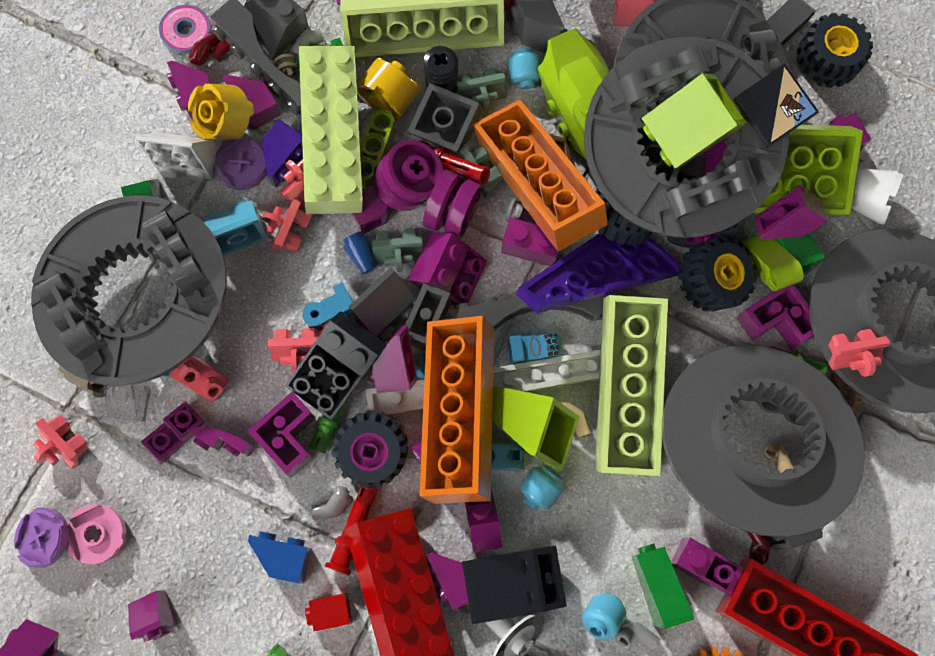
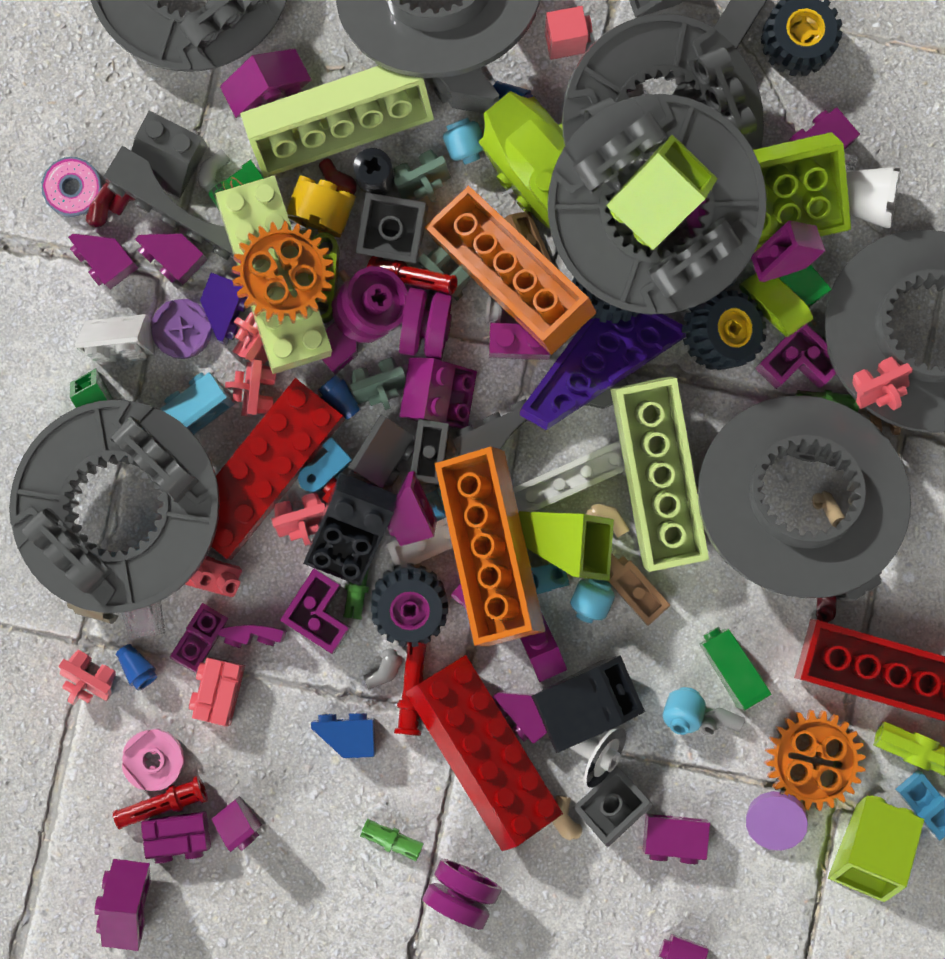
camera: 10 degrees left, 10 degrees up
(41, 537) = (100, 777): medium lavender tile -> none
(92, 612) = (176, 836): none -> magenta brick
(104, 574) = (173, 799): none -> red pin
(107, 444) = (136, 668): none -> blue cone
(173, 485) = (217, 691): none -> coral brick
(219, 111) = (146, 282): yellow brick -> none
(278, 294) = (270, 463): none -> red brick
(286, 64) = (198, 203): dark tan bush -> none
(329, 612) = (411, 776): red brick -> none
(362, 116) = (257, 284): none -> orange gear
(412, 73) = (343, 181): none -> dark red arm
(534, 347) = (550, 456): dark azure leg -> none
(584, 489) = (636, 590): none -> medium nougat hinge
(706, 566) = (775, 636): magenta slope -> none
(775, 105) = (743, 153): tile -> none

